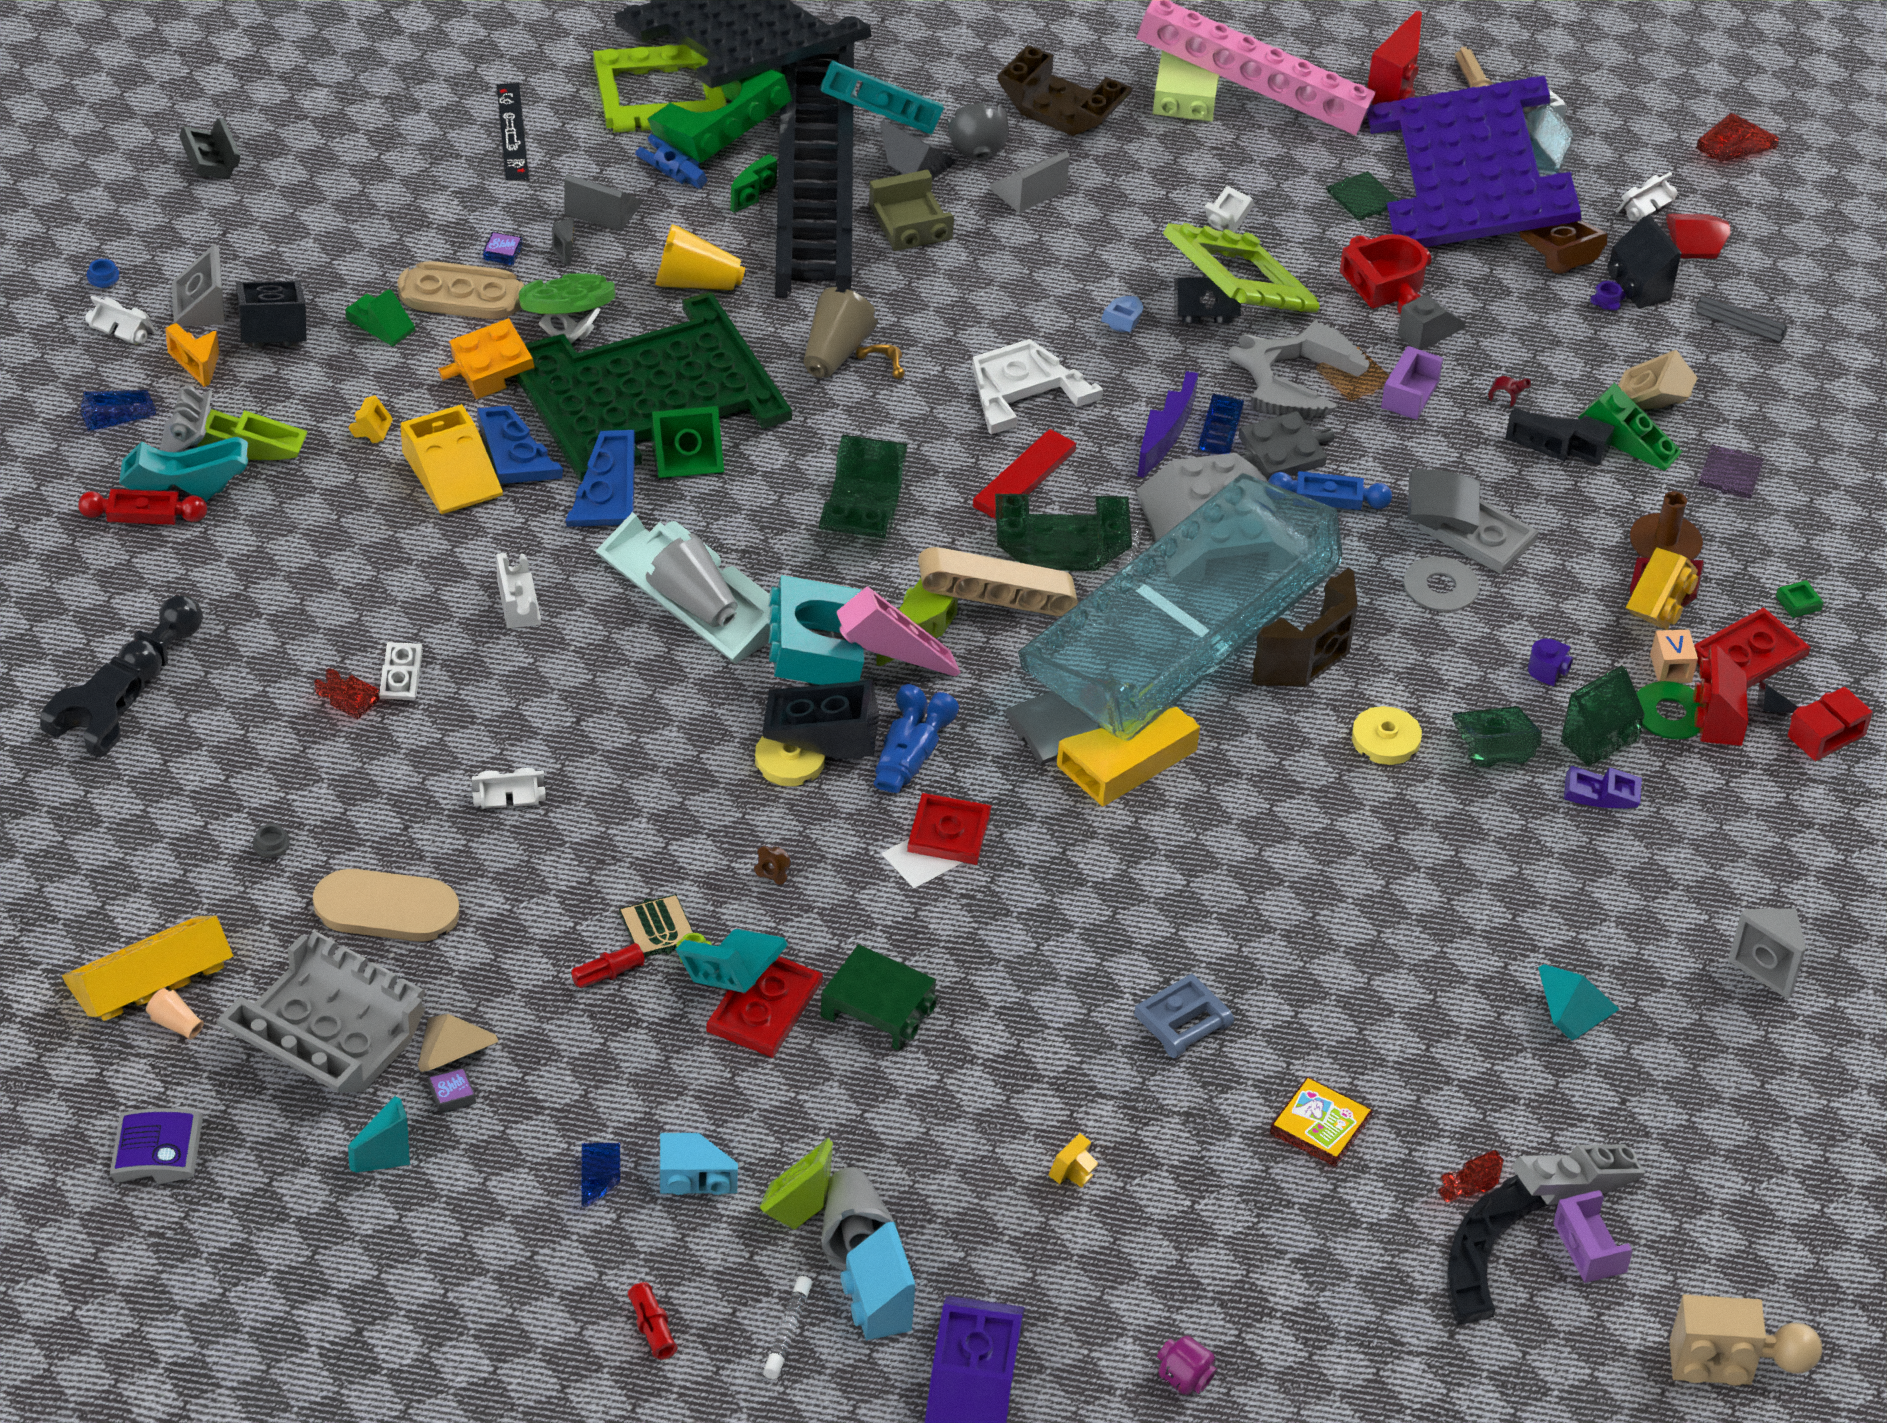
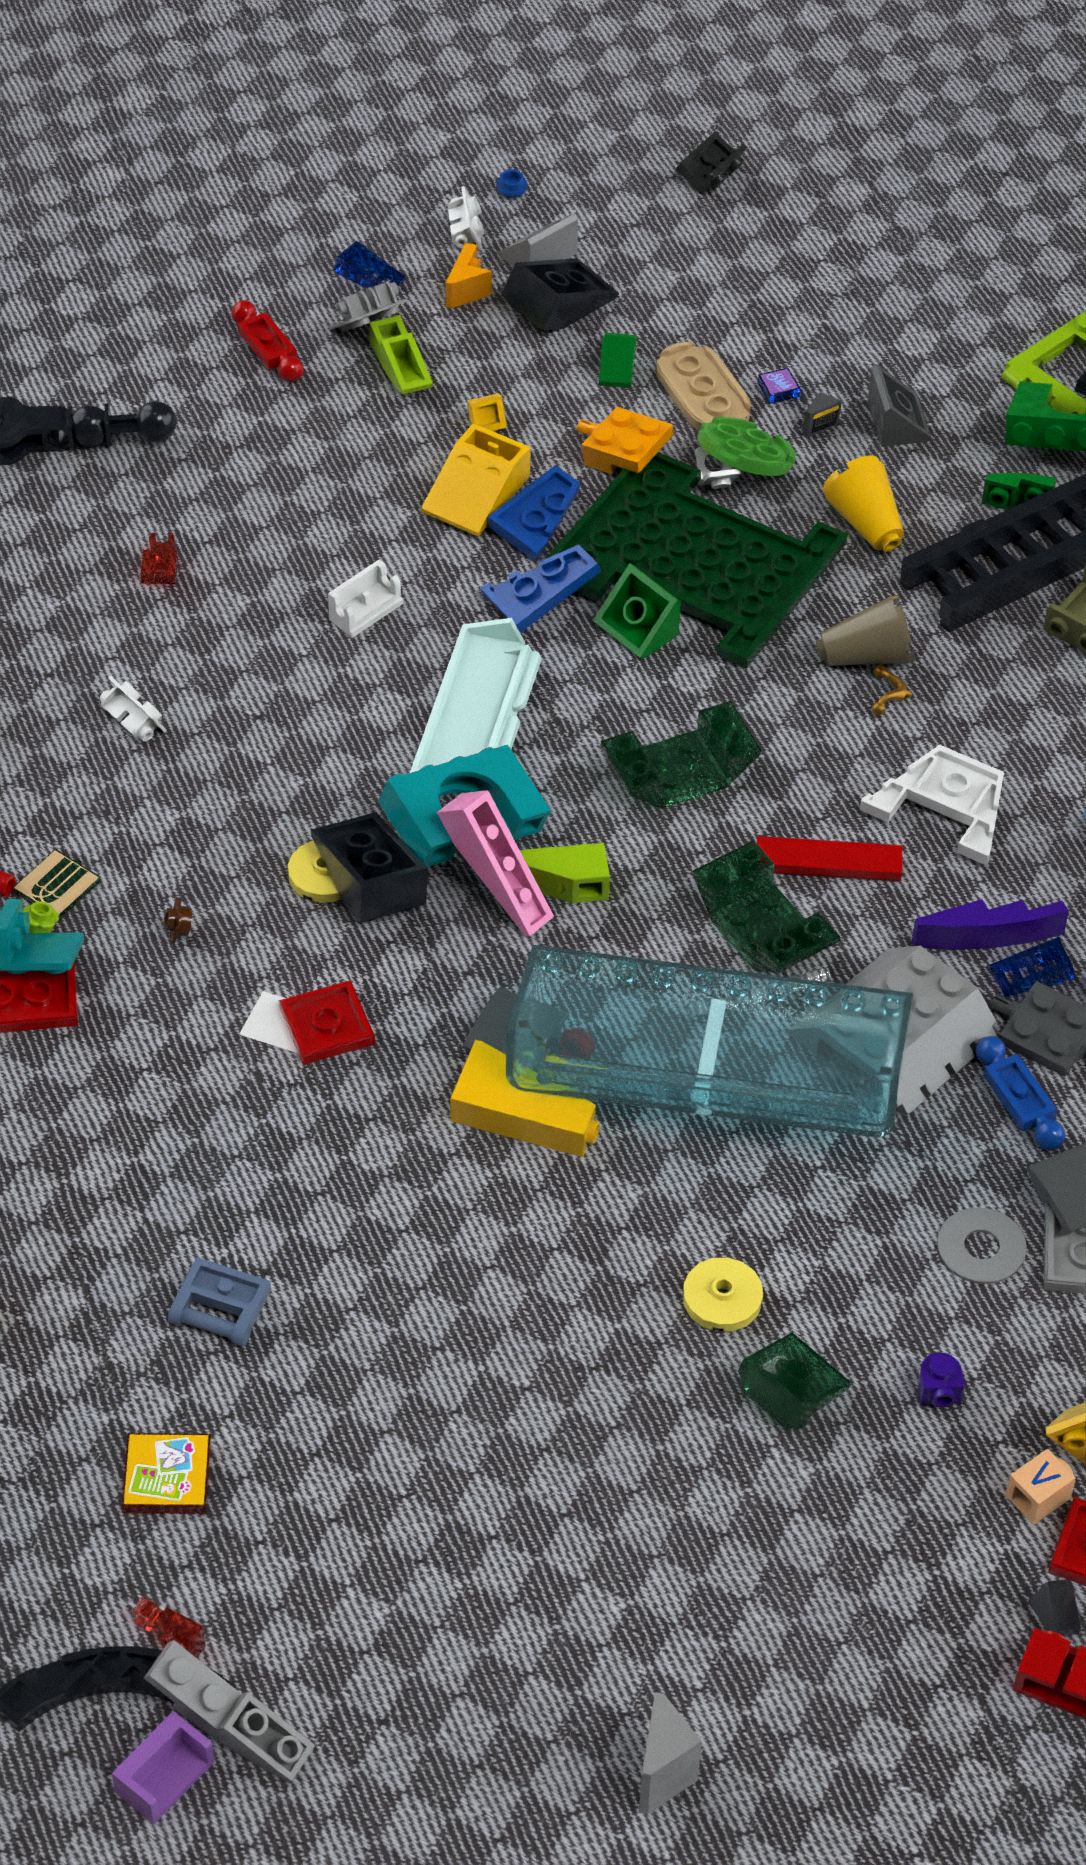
camera: 60 degrees right, 5 degrees up
(197, 470) = (323, 343): teal arch -> none
(401, 671) = (207, 585): white slope -> none
(512, 131) = (936, 319): black sticker -> none
(672, 162) = (993, 430): blue hinge -> none
(693, 581) = (460, 695): light grey cone -> none
(880, 994) = (71, 1068): dark green panel -> none
(909, 740) = (405, 940): blue piece -> none
(997, 581) = (640, 895): tan beam -> none
(1298, 657) = (786, 1177): dark brown slope -> none
(1574, 1001) = (470, 1613): teal slope -> none
(1603, 717) = (881, 1458): clear green slope -> none
(1612, 790) = (800, 1510): dark purple slope -> none
(1660, 691) = (967, 1551): green gear -> none
(1721, 699) = (1003, 1553): red slope -> none

